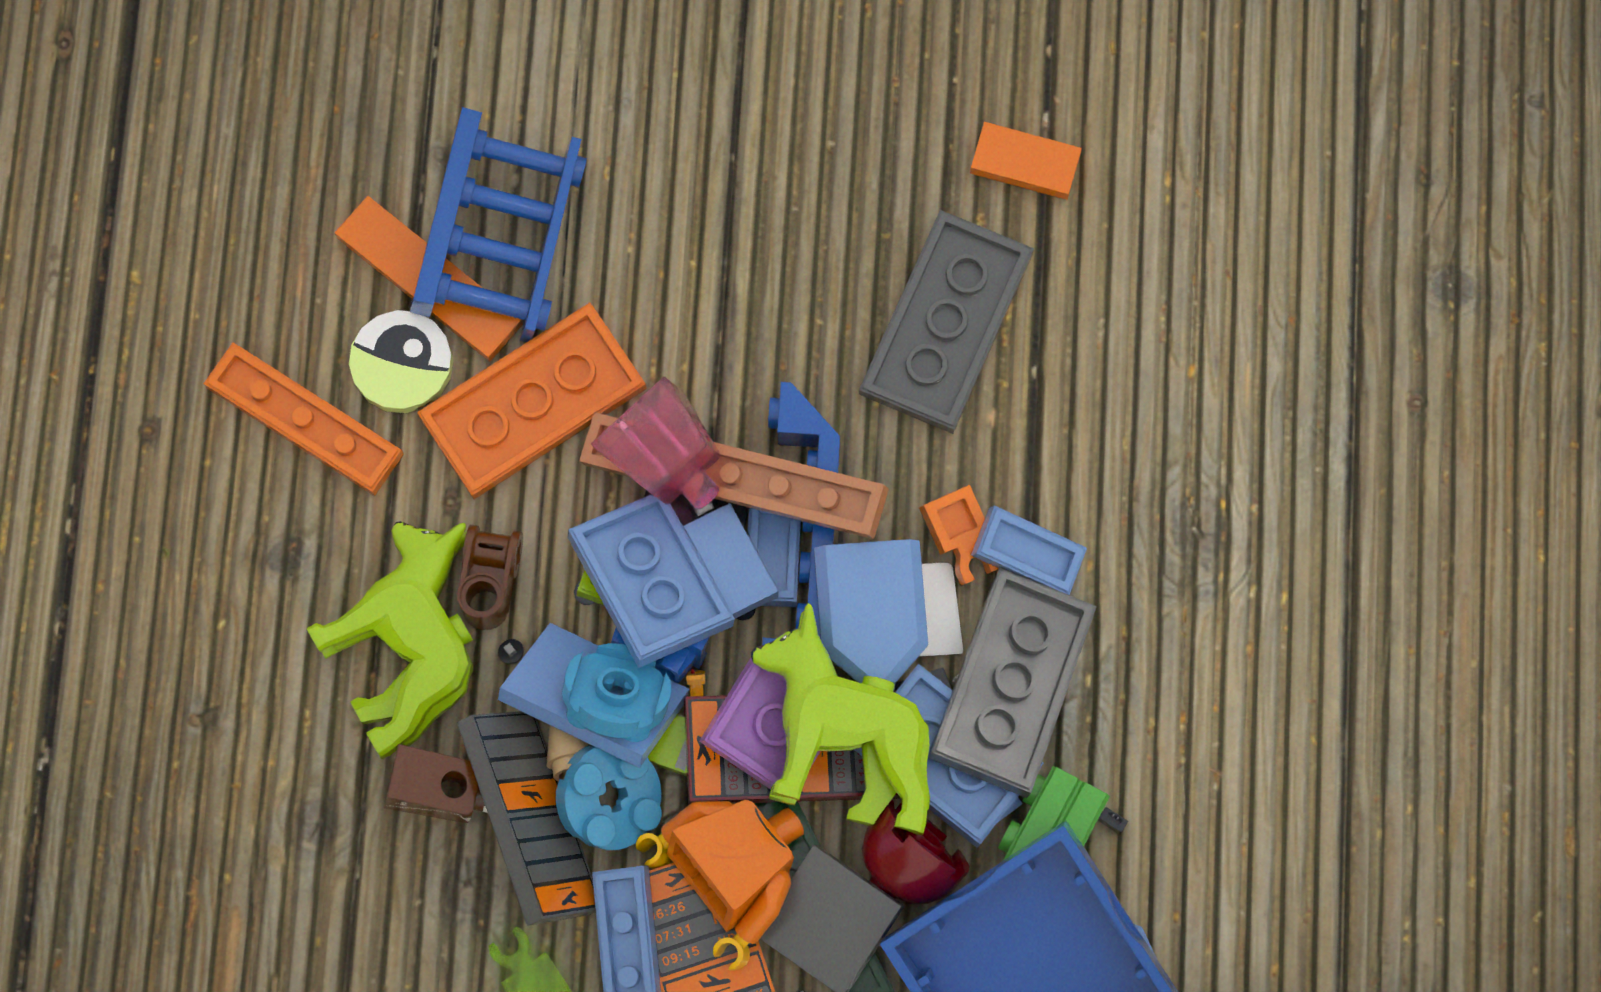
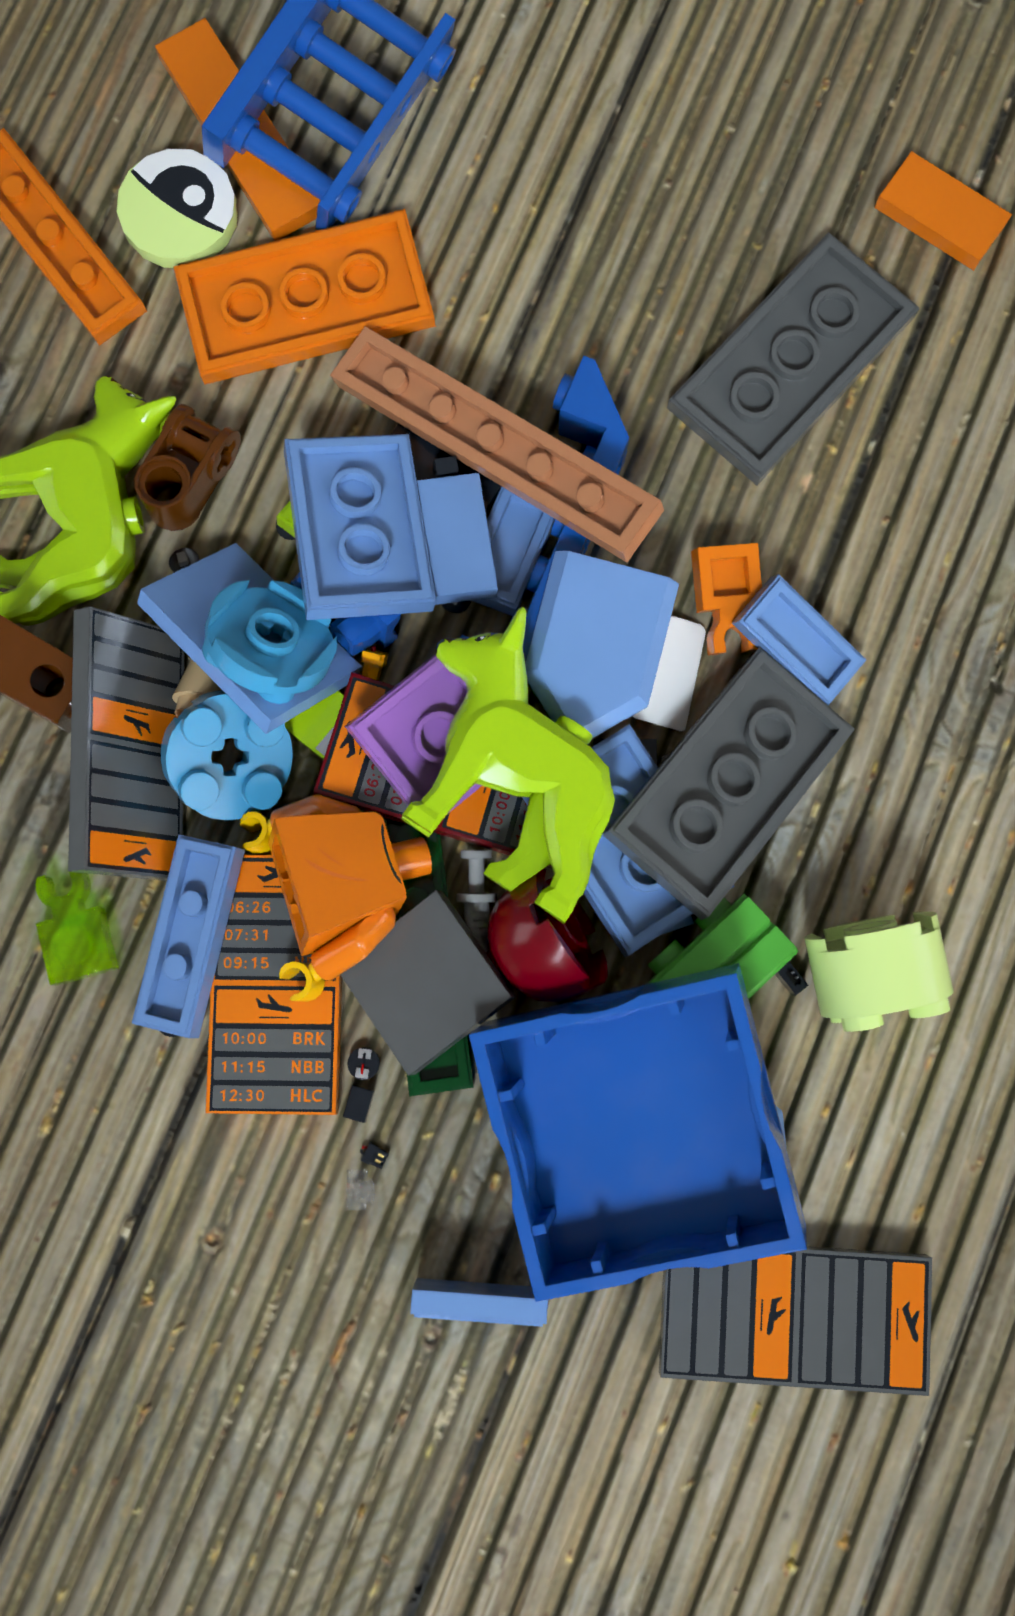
camera: 20 degrees right, 5 degrees up
(663, 446) = (422, 377): clear pink torso -> none
(845, 844) = (477, 901): none -> light grey piece
(1175, 788) = (880, 970): none -> yellowish green brick

